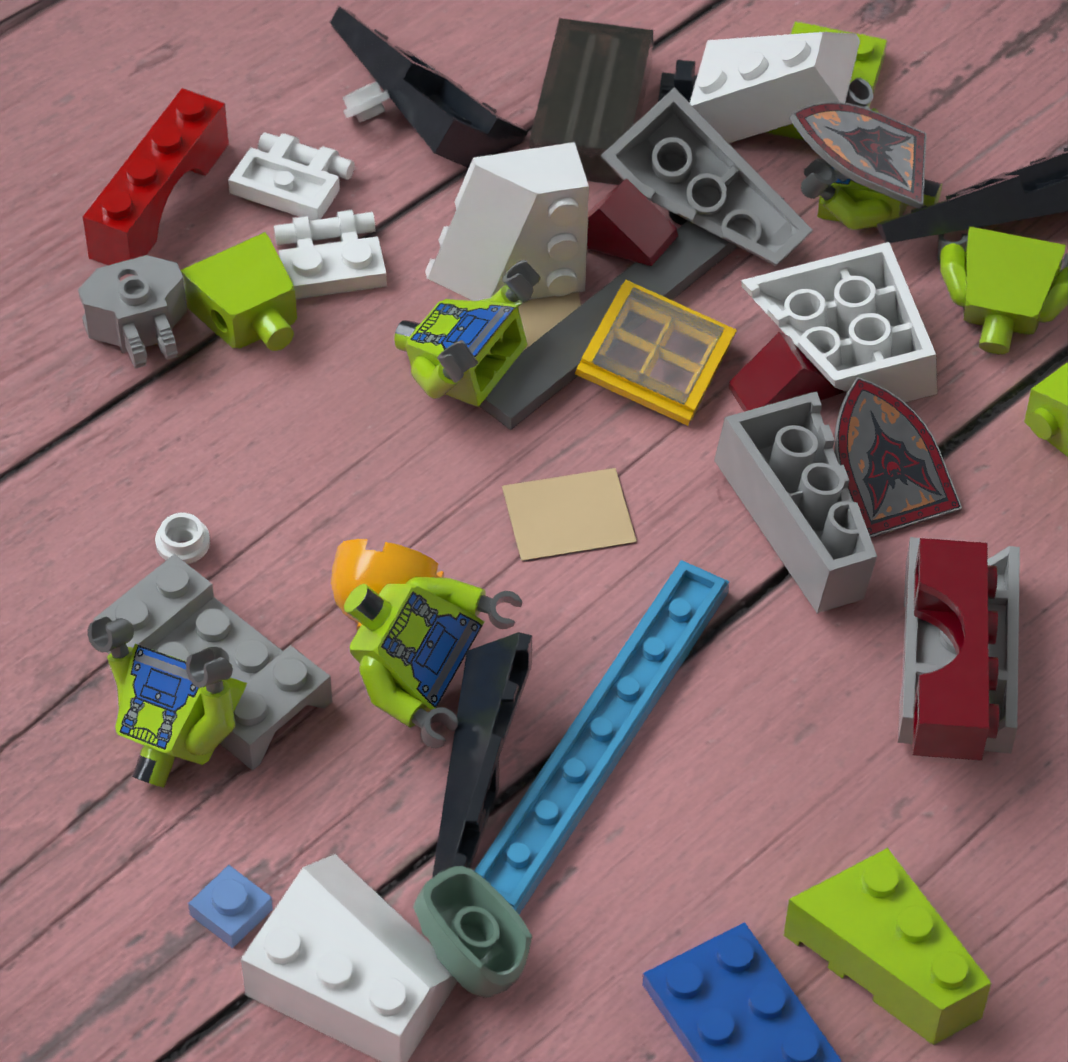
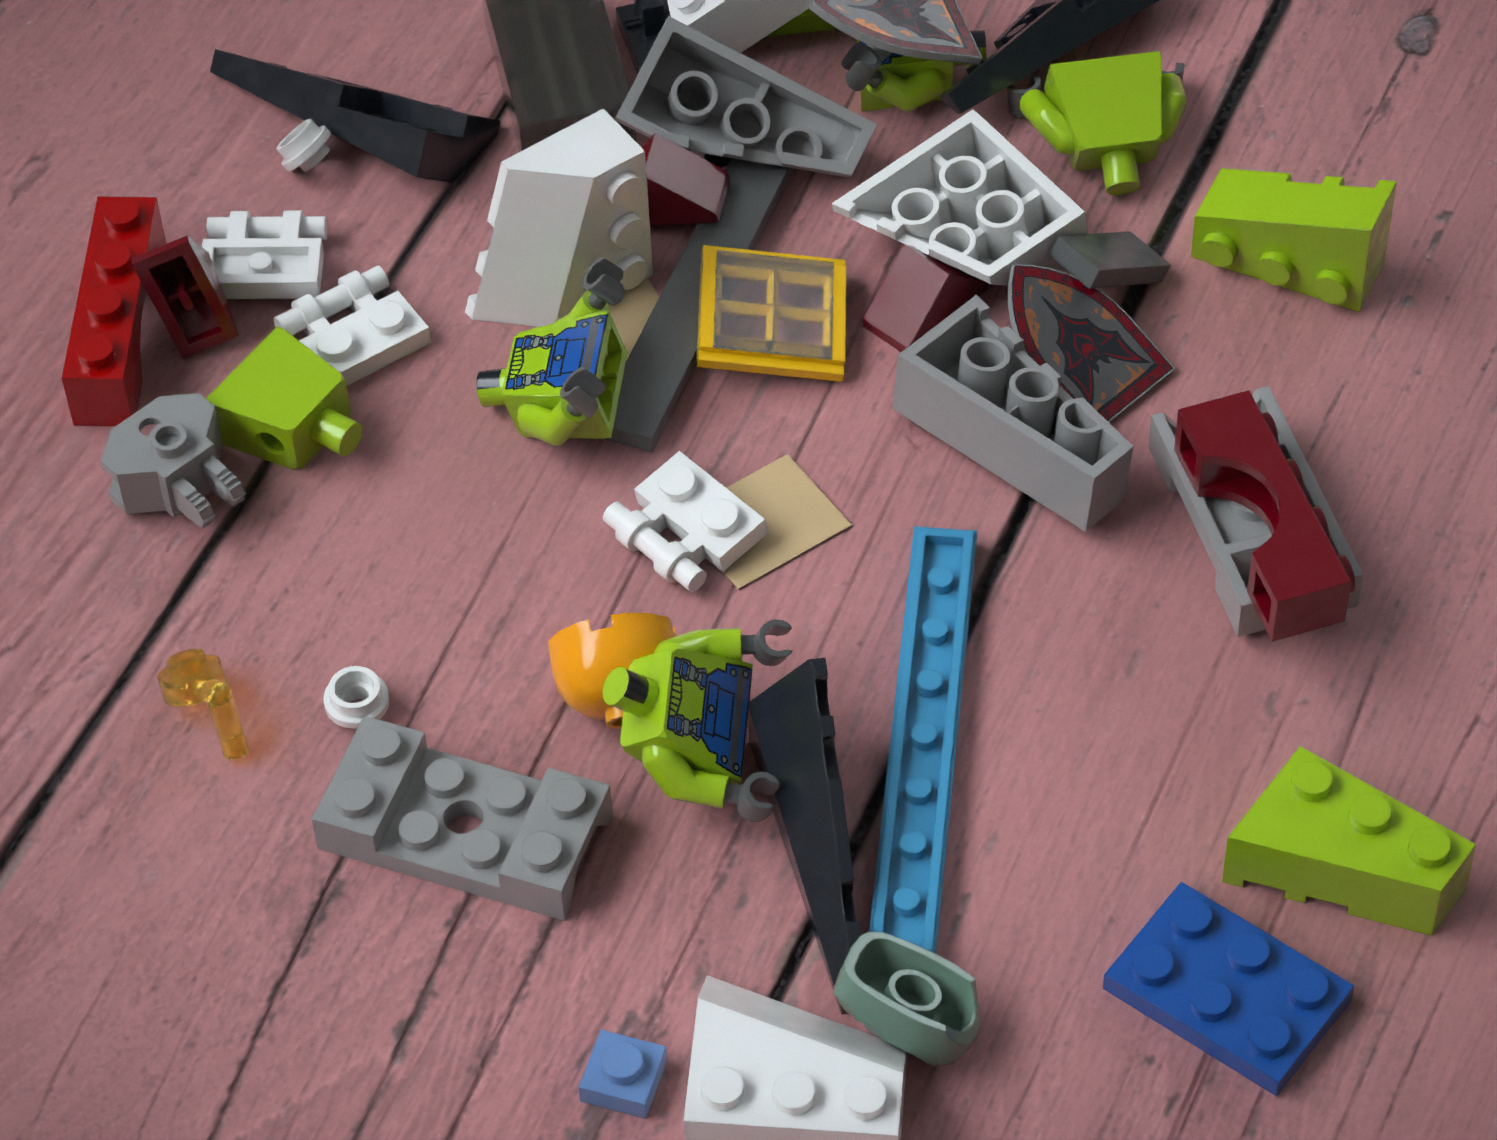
camera: 20 degrees left, 0 degrees up
(71, 482) = (199, 678): none -> clear yellow plate
(167, 701) = (450, 875): torso -> none
(211, 184) = (186, 295): none -> dark red slope
(519, 487) = (697, 510): none -> white plate
(947, 401) = (1109, 259): none -> dark grey tile

